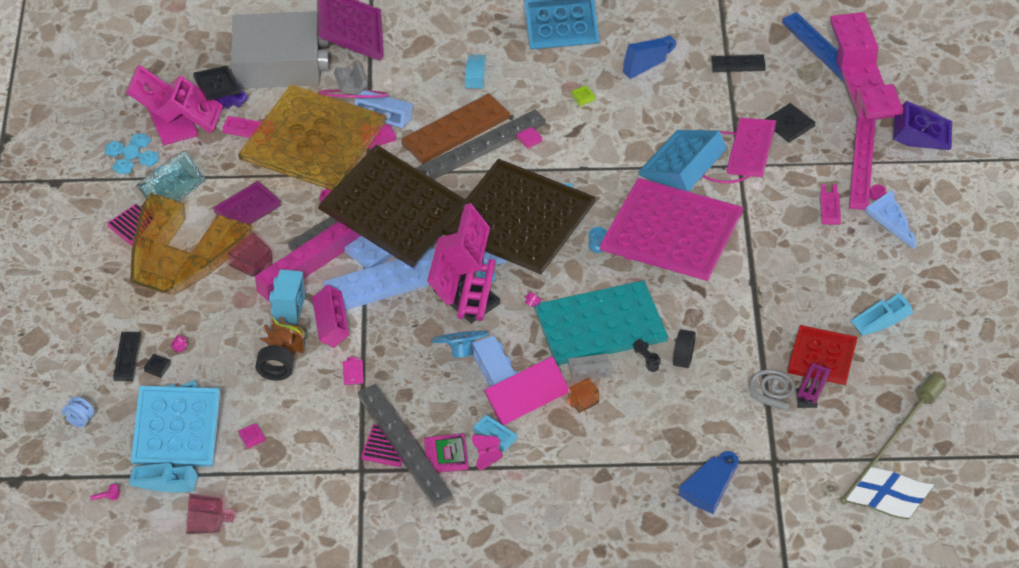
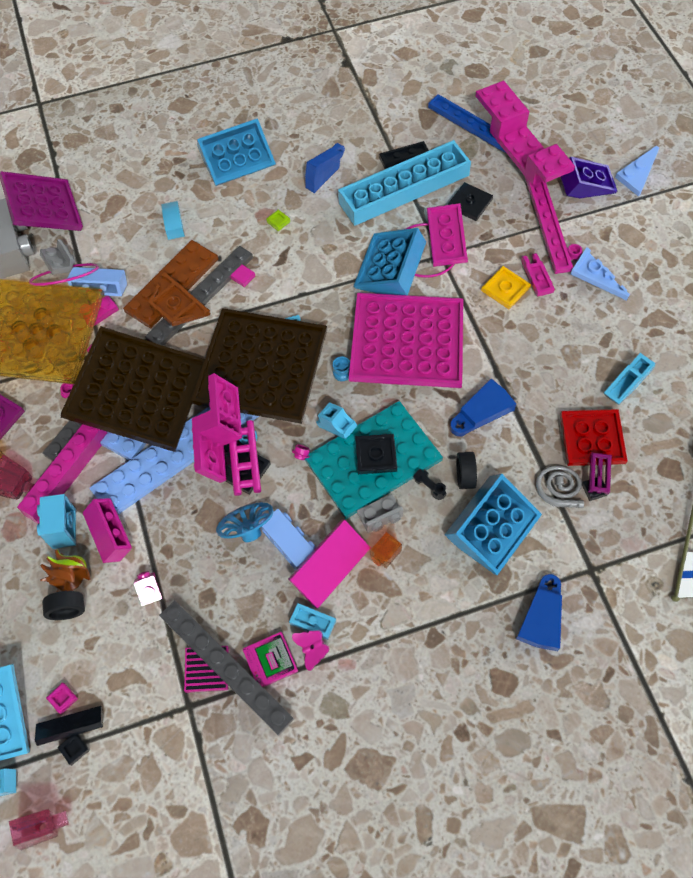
camera: 15 degrees left, 15 degrees up
(251, 474) = (73, 749): none -> black tile
(262, 455) = (69, 725): none -> black tile
(454, 144) = (176, 303): none -> dark orange wing
(574, 279) = (336, 421): none -> medium azure brick
(602, 314) = (376, 454): none -> black plate
(694, 399) = (493, 523): none -> dark azure slope
(724, 305) = (484, 407): none -> blue piece
(725, 88) = (404, 182): none -> medium azure brick
(793, 209) = (505, 287): none -> yellow tile
(980, 135) = (636, 173): none -> light blue wing

